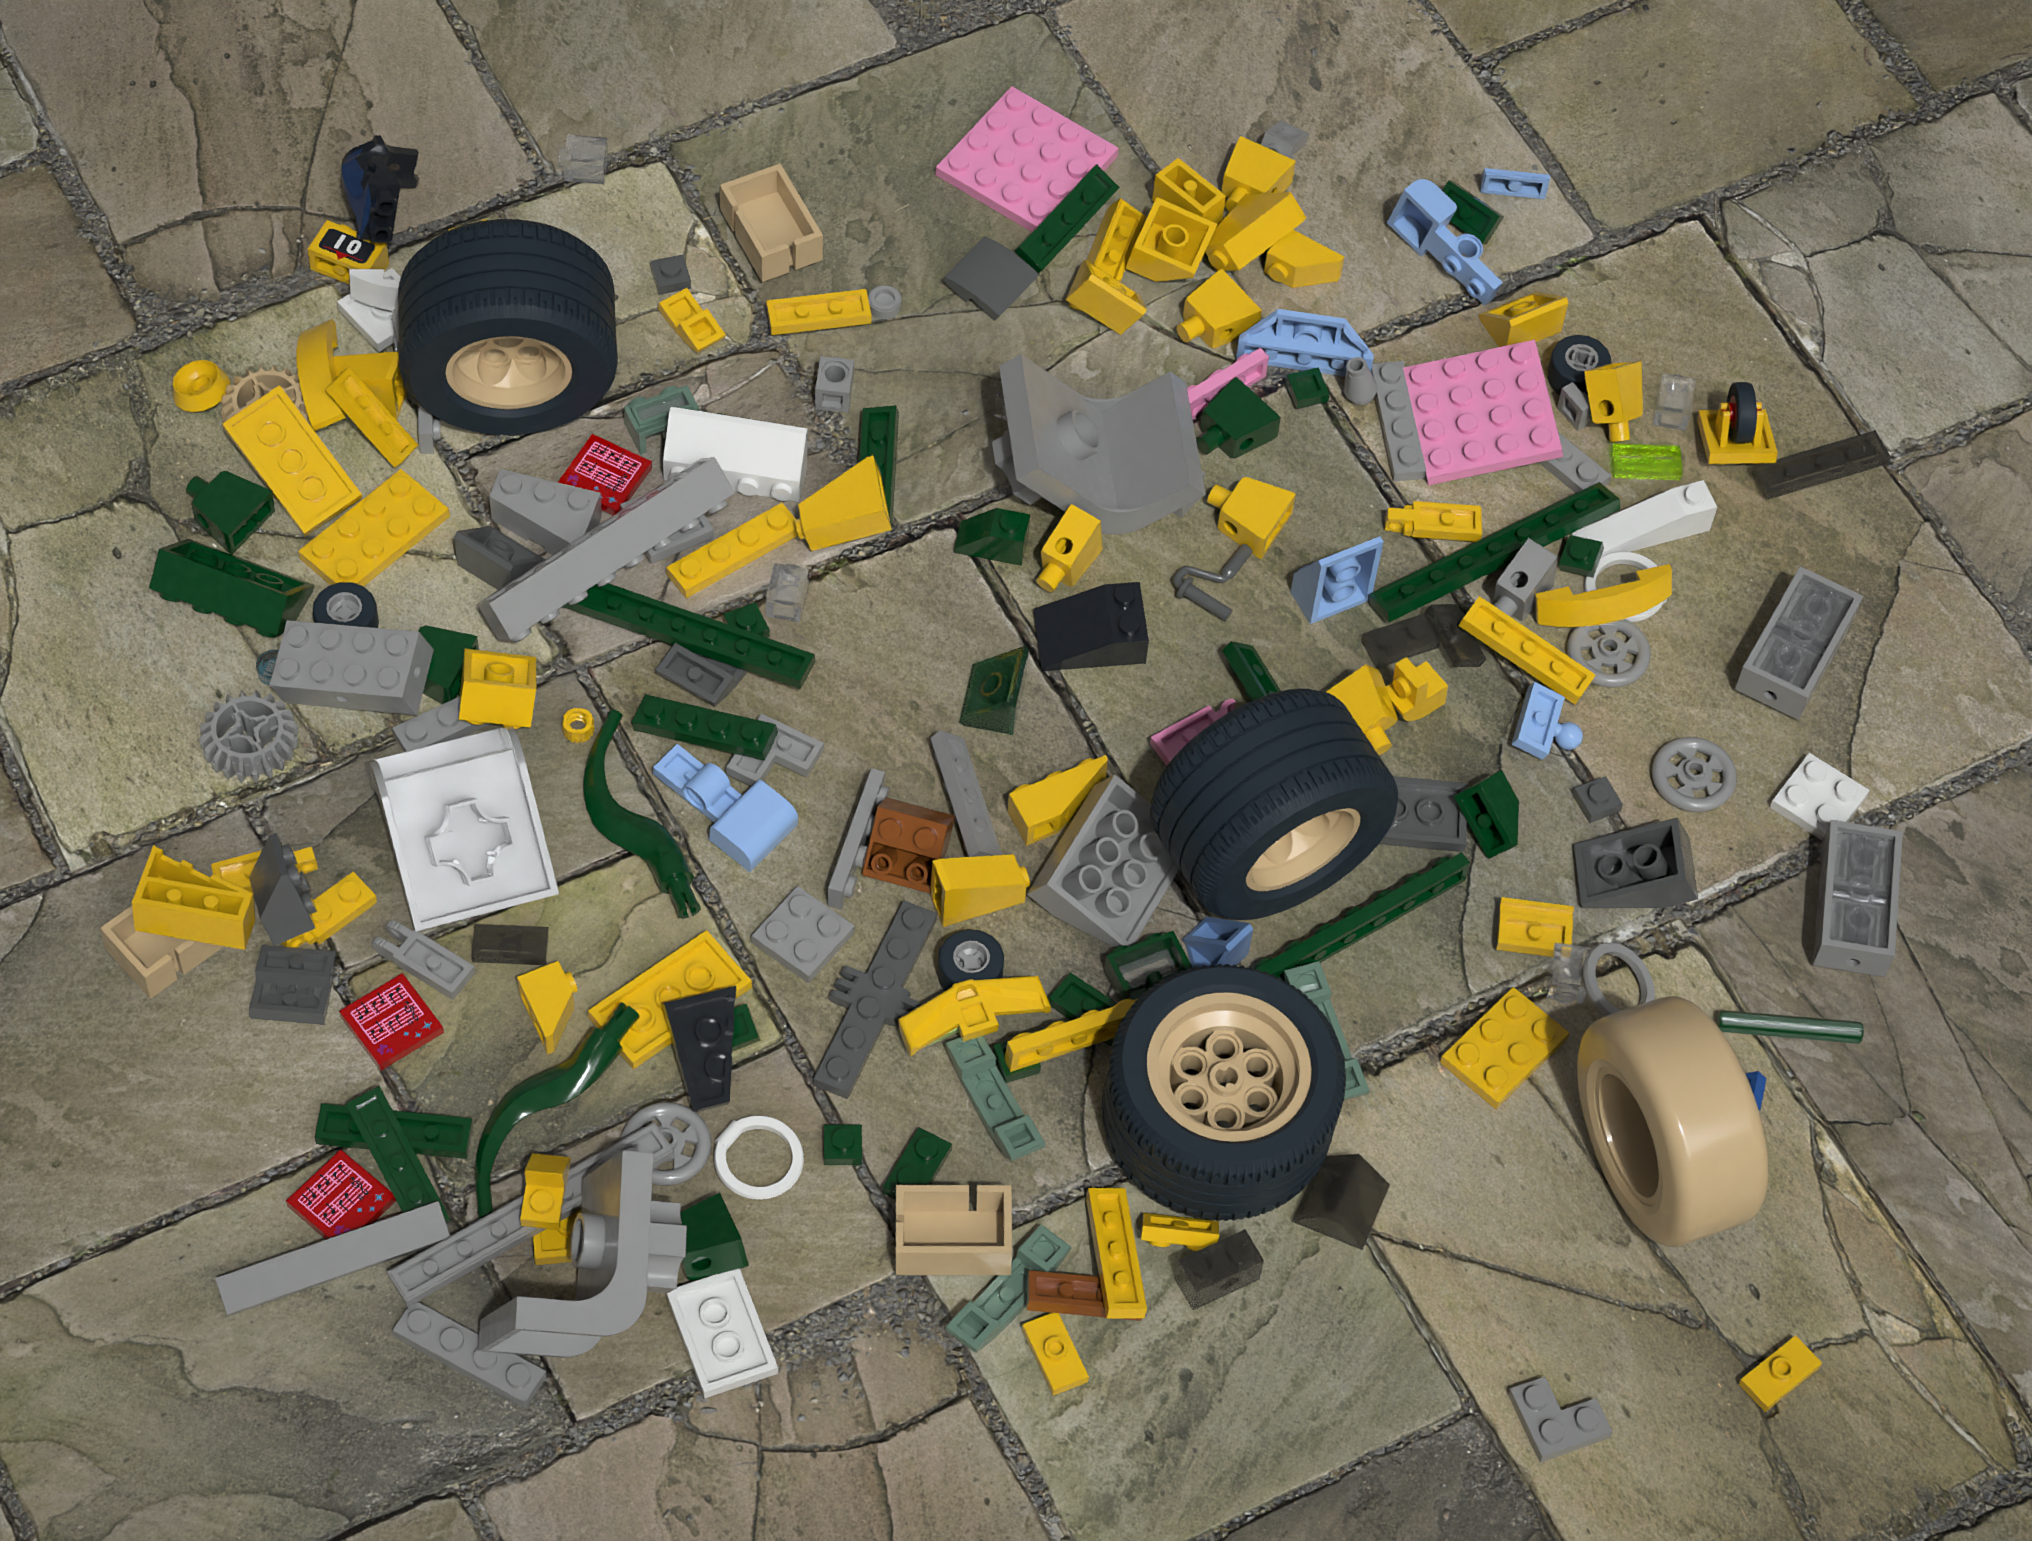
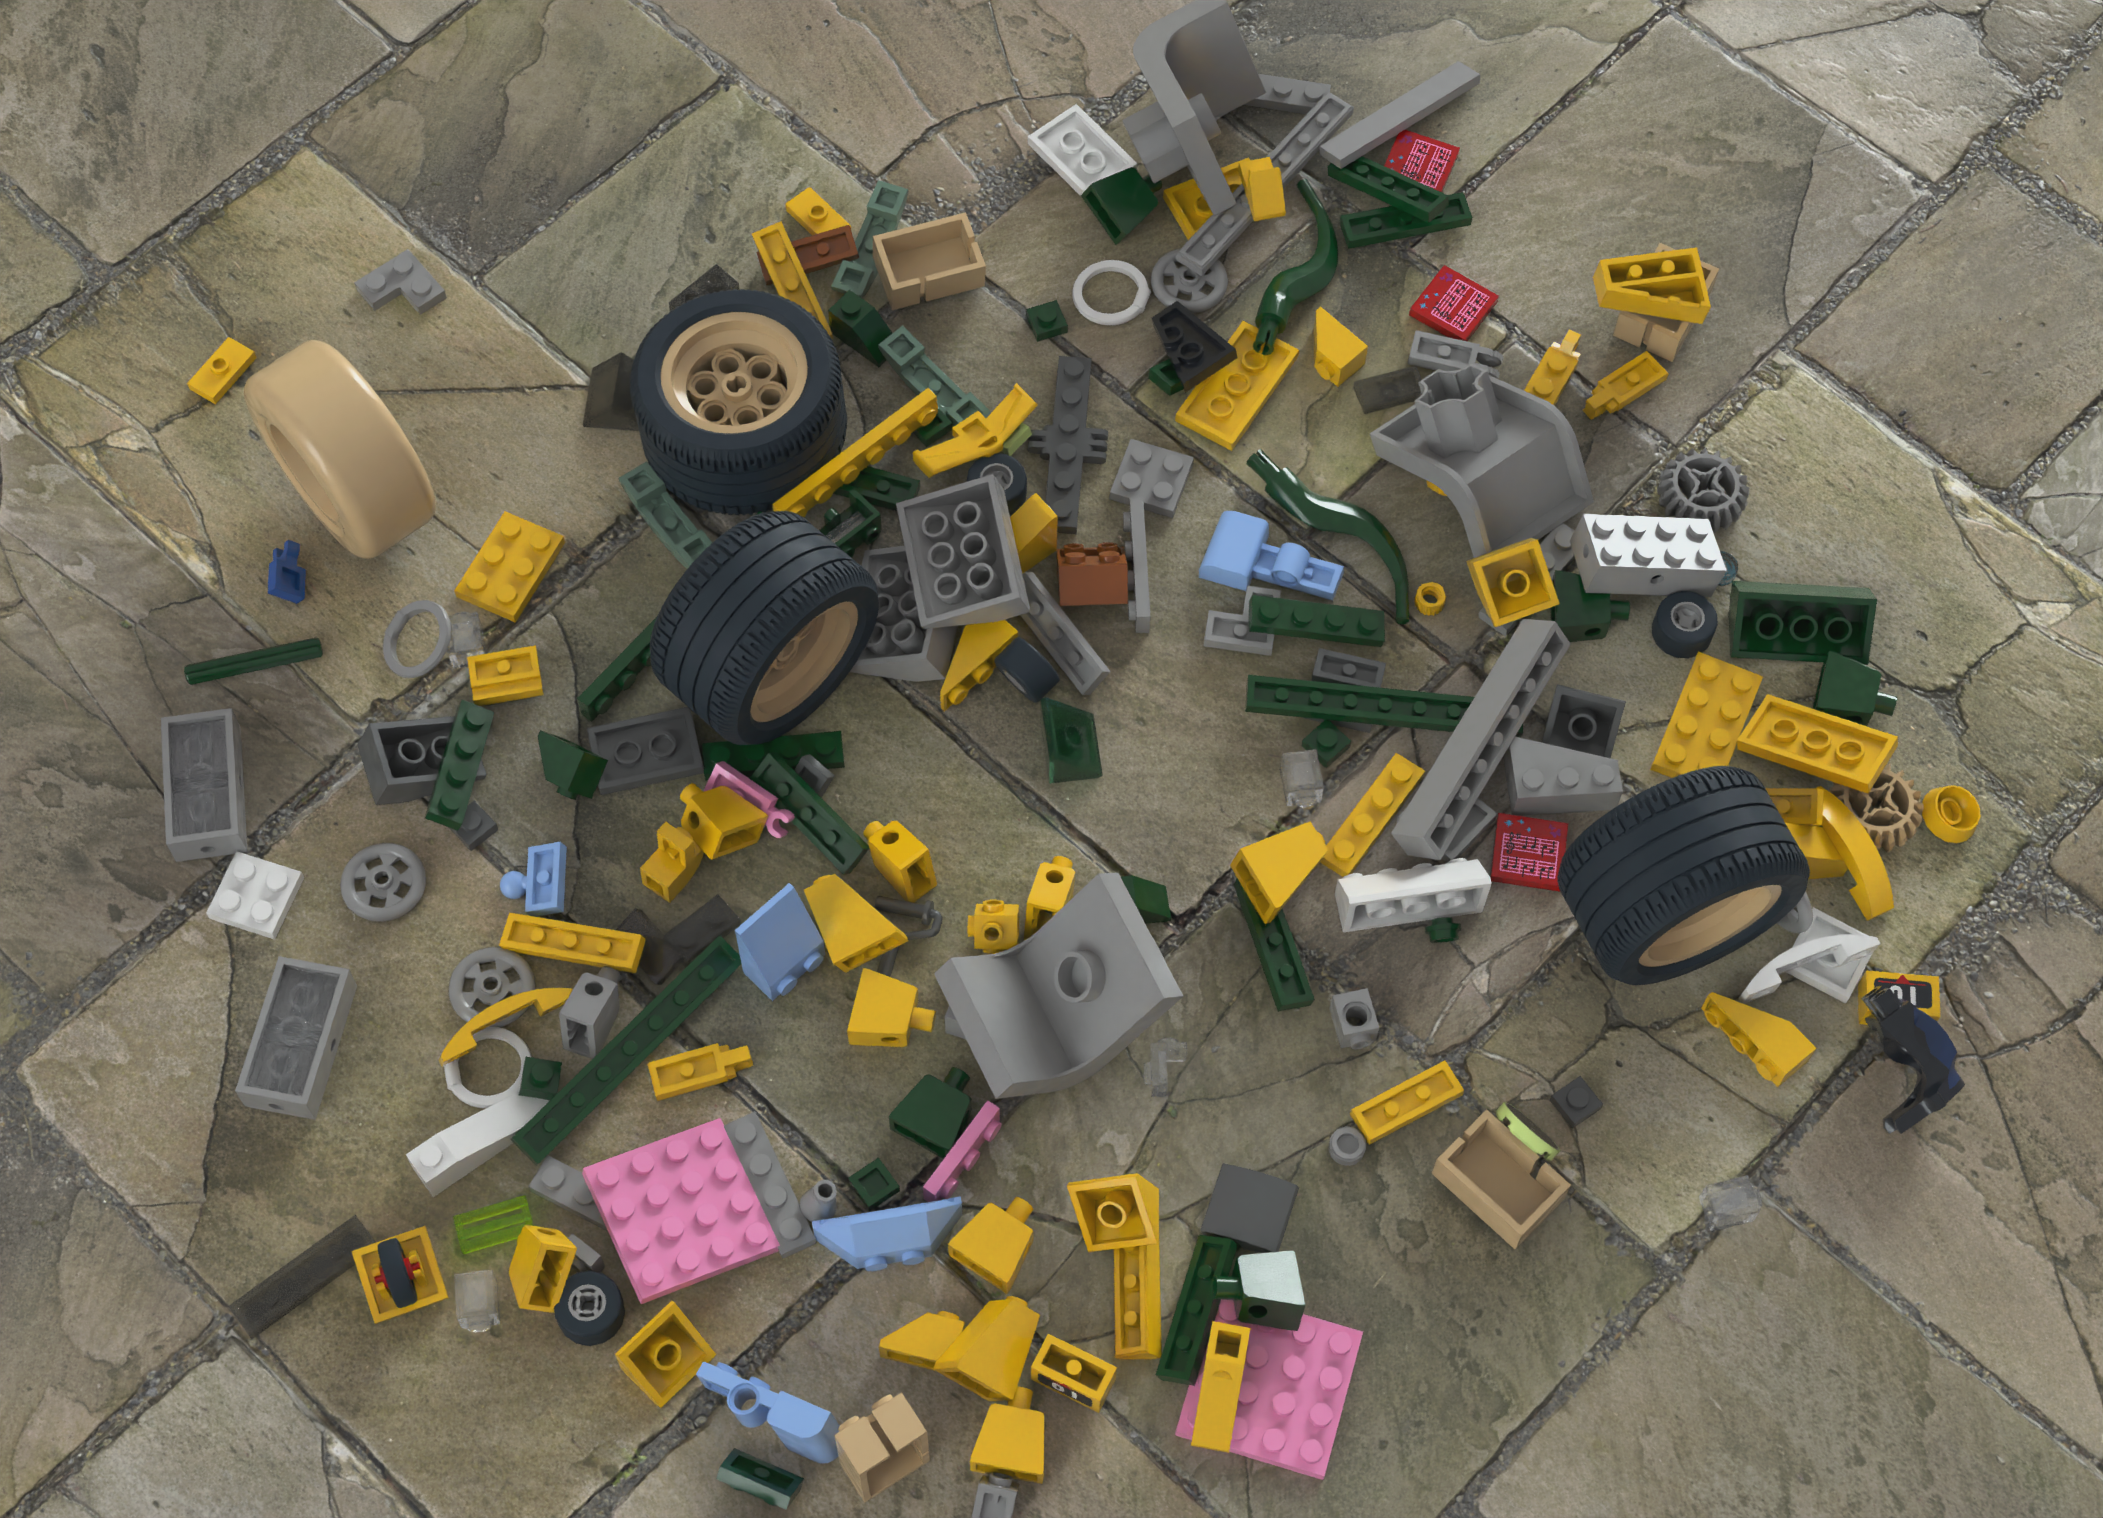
camera: 165 degrees right, 5 degrees up
(281, 892) = (1590, 347): dark grey slope -> none
(292, 984) = (1547, 308): dark grey slope -> none
(651, 415) = (1502, 923): sand green window -> none
(690, 321) = (1527, 1052): yellow slope -> none
(730, 245) = (1528, 1131): none -> yellowish green tile
(918, 1162) = (979, 321): dark green plate -> none
(1008, 202) = (1264, 1290): none -> torso
(1012, 760) = (1027, 669): none -> black wheel
(1043, 849) = (963, 555): none -> light grey slope
(1053, 1190) = (859, 326): none -> dark green slope
(1071, 147) = (1220, 1386): none -> yellow slope
(1093, 629) = (1000, 837): black slope -> none
(1129, 546) = (994, 926): none -> yellow brick
(1170, 243) = (1072, 1301): yellow slope -> none
(1174, 738) = (869, 763): bright pink plate -> none
(1198, 626) = (901, 859): none -> yellow torso
(1261, 588) = (850, 924): none -> yellow slope
(1361, 185) = (882, 1446): none -> tan piece
(1600, 843) = (459, 765): none -> dark green plate

